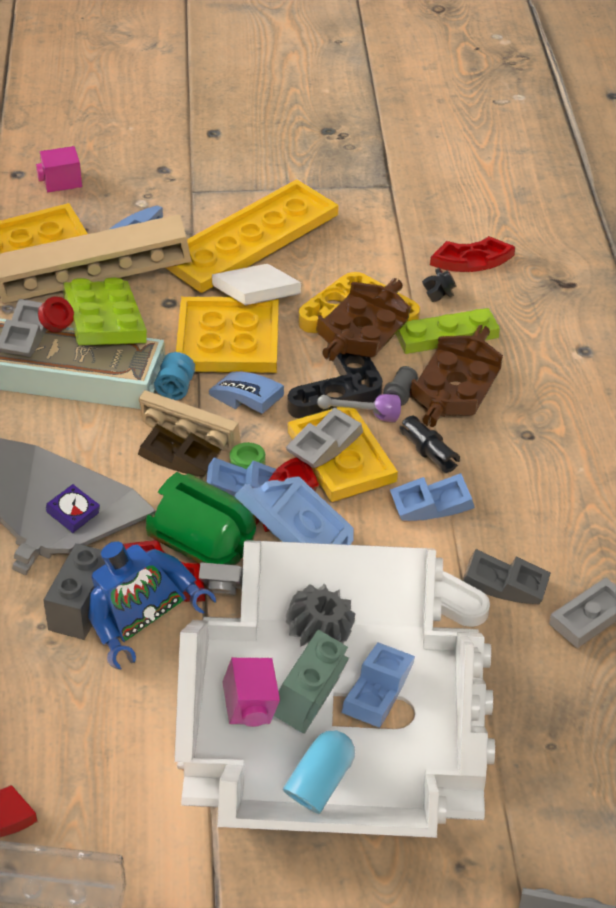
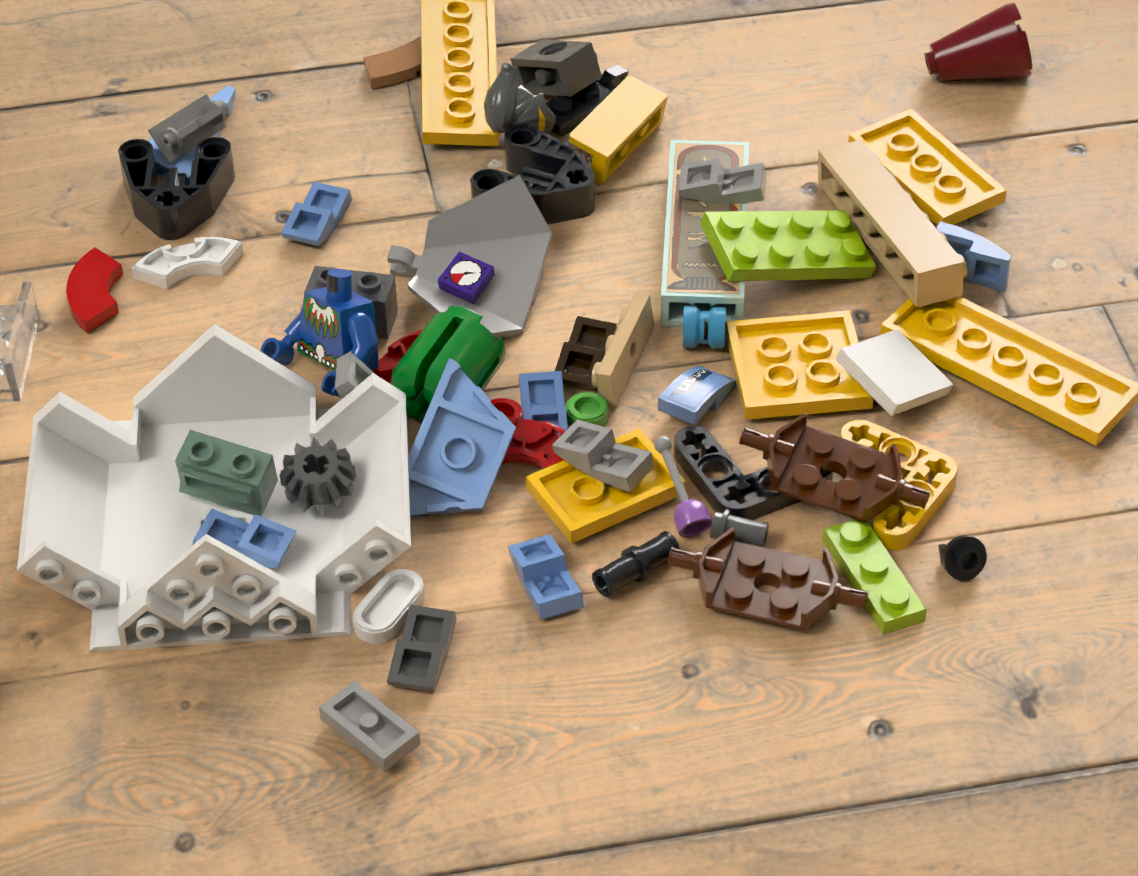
camera: 85 degrees right, 0 degrees up
(56, 314) = (745, 194): red tile -> none
(59, 169) = (1080, 173): dark pink brick -> none
(250, 691) = (198, 412): dark pink brick -> none
(321, 770) = (112, 485): medium azure cylinder -> none
(472, 257) = (1051, 595): red tile -> none

